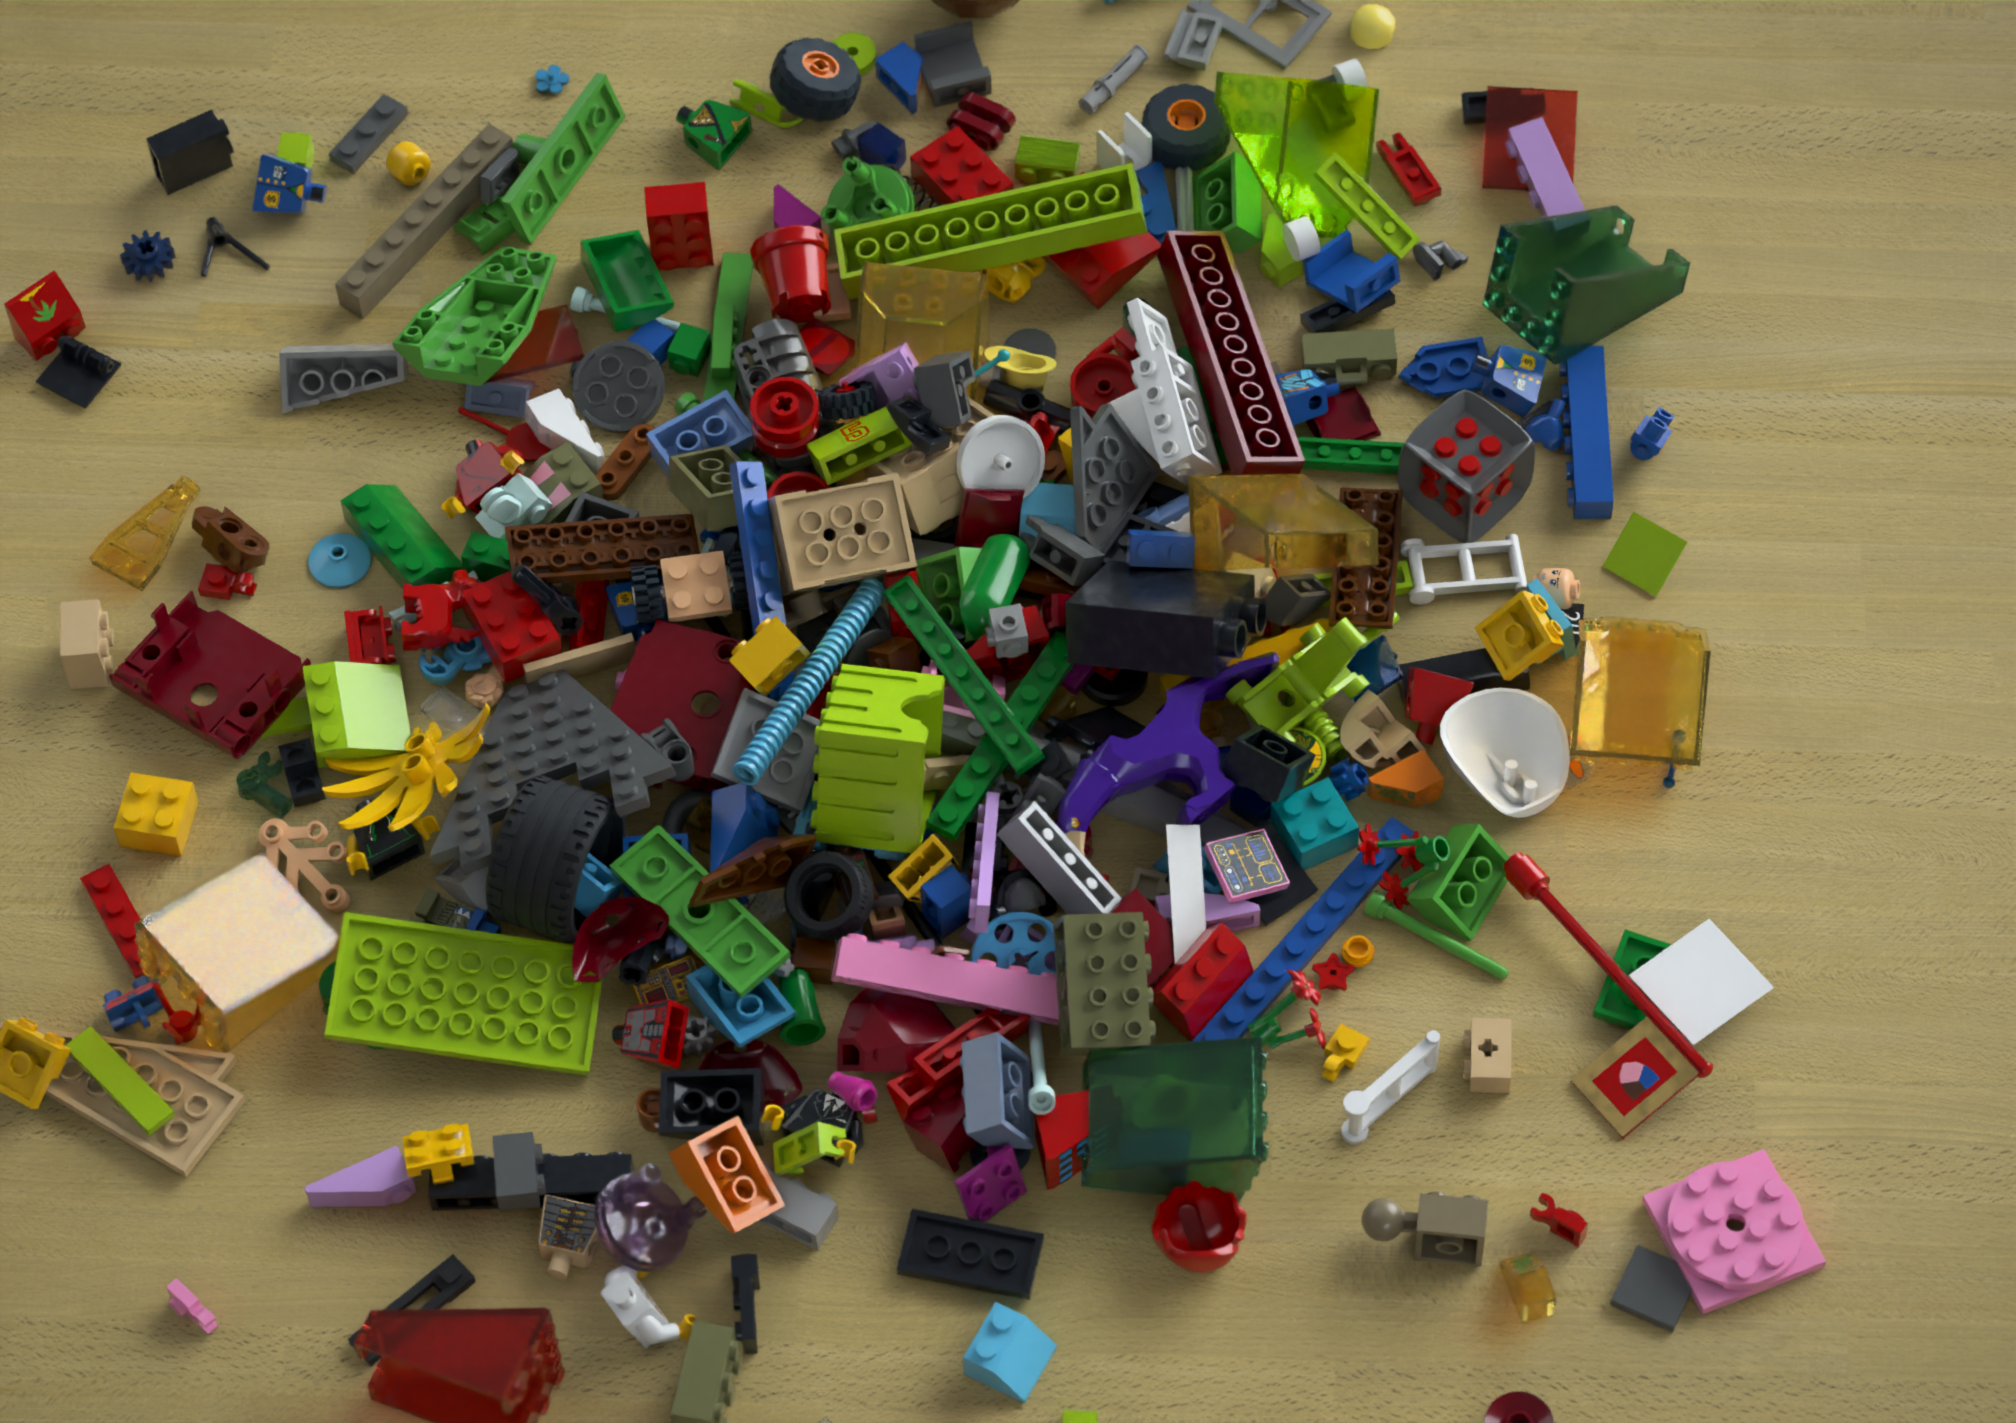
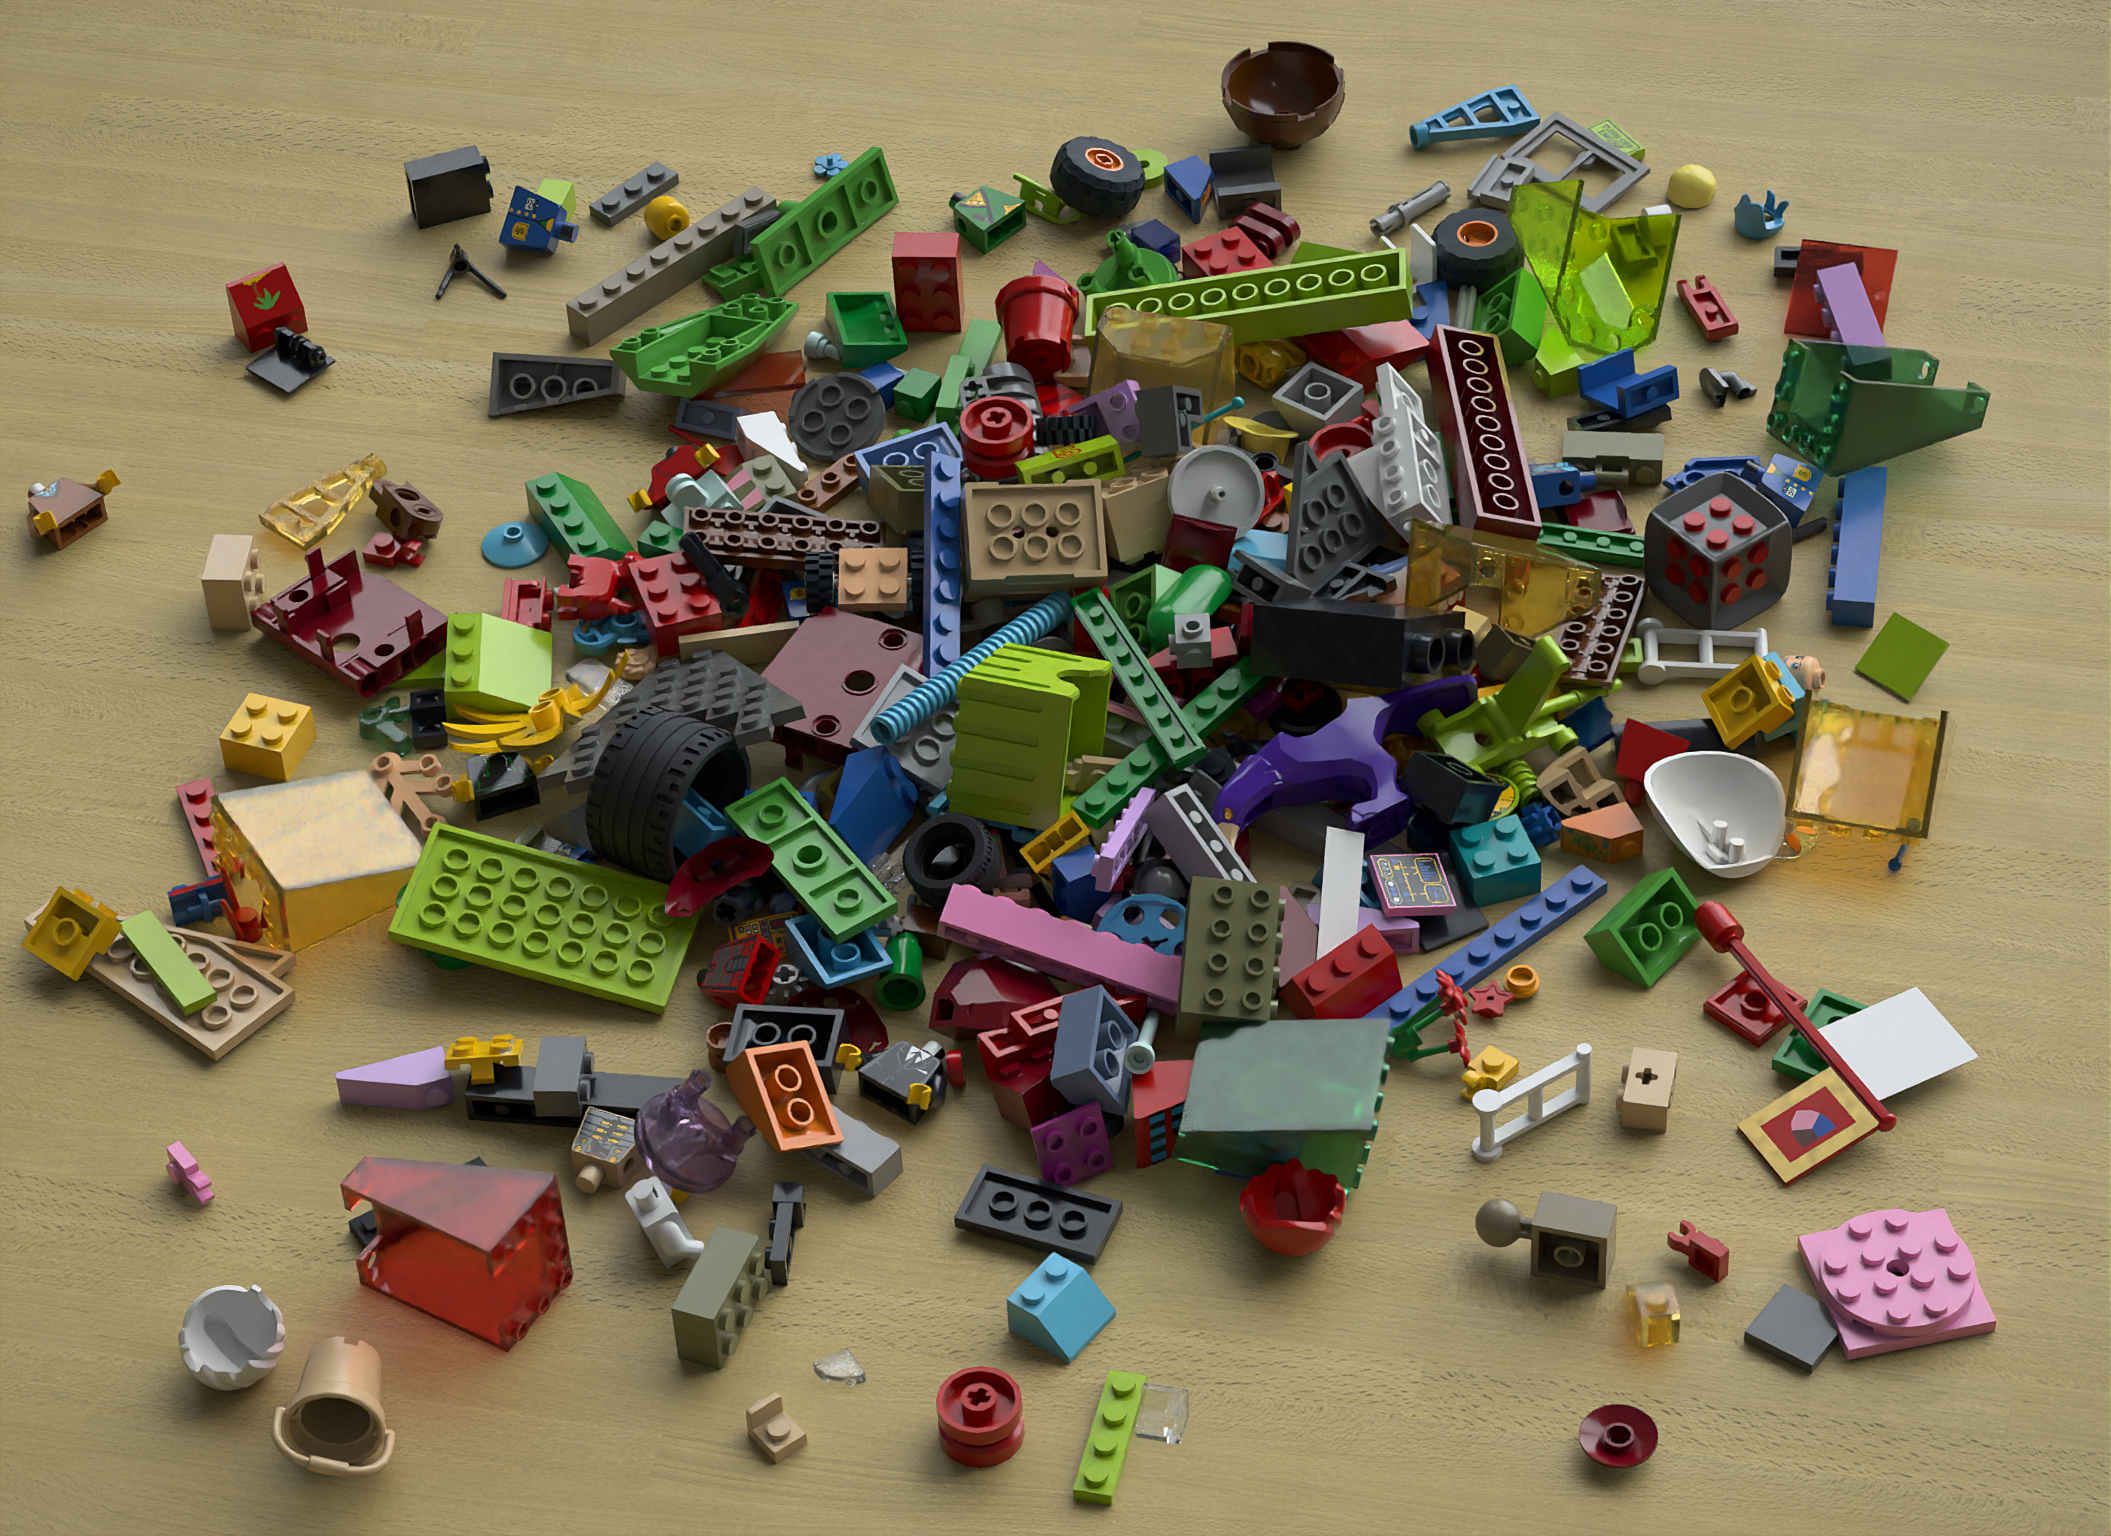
camera: 10 degrees right, 15 degrees down
(147, 255) = (384, 272): dark blue gear -> none
(672, 747) = (819, 725): dark grey piece -> none
(755, 869) = (872, 824): reddish brown wedge -> none
(768, 655) = (932, 632): yellow brick -> none
(806, 1146) = (876, 1083): lime hinge -> none
(854, 1091) = (942, 1043): dark pink cone -> none
(914, 423) = (1130, 446): black slope -> none
(1069, 324) = (1317, 400): none -> light grey slope
(1160, 549) = (1370, 583): blue brick -> none
(1301, 238) = (1577, 344): white piece -> none
(1366, 206) = (1653, 326): lime plate -> none
(1381, 908) = (1551, 943): bright green piece -> none
(1415, 850) = (1602, 894): plant -> none
(1433, 59) = (1751, 220): none -> dark azure piece
(1547, 427) = (1816, 538): blue rock -> none
(1562, 957) = (1748, 1010): none -> red tile
(1651, 435) = (1926, 551): blue hips -> none

